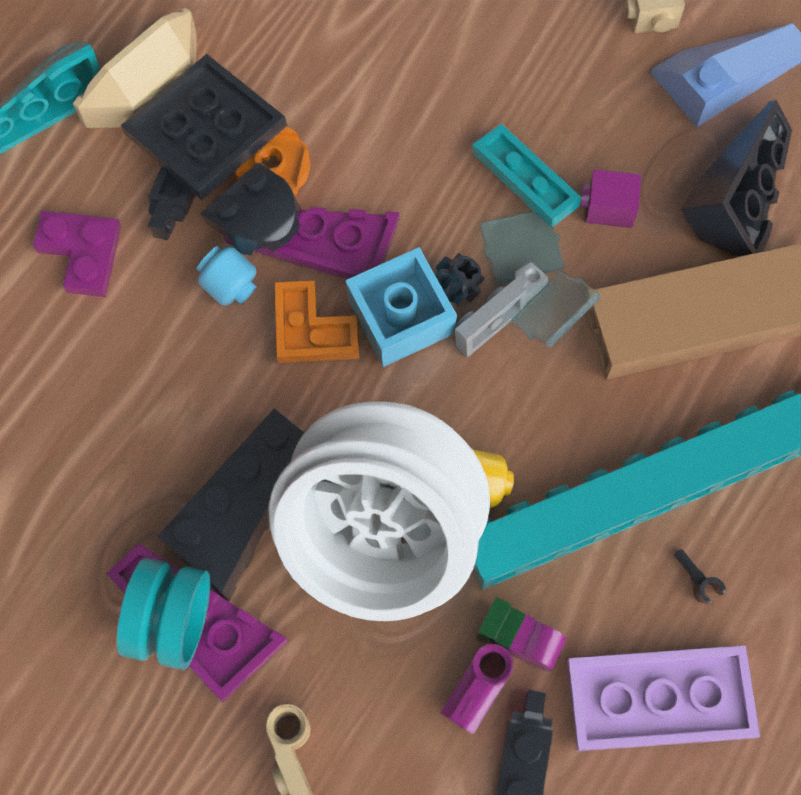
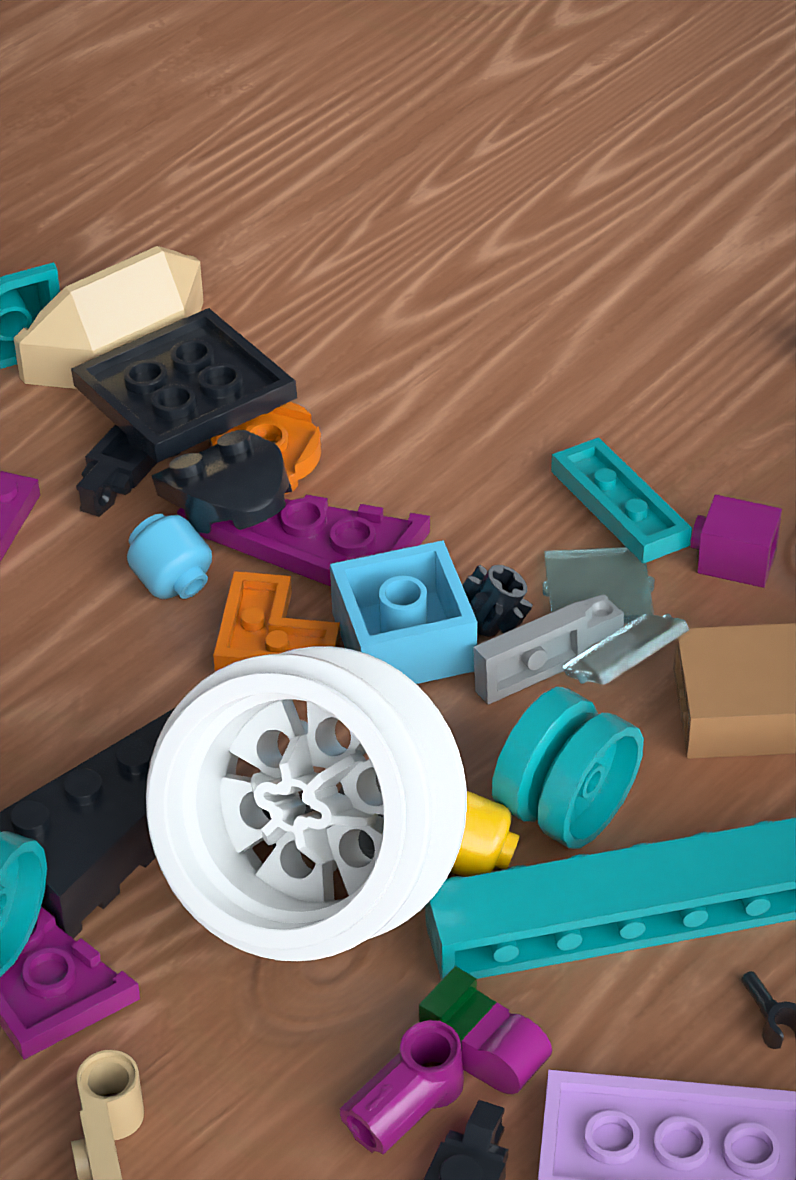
camera: 10 degrees right, 25 degrees down
(534, 420) = (567, 767): none -> teal wheel

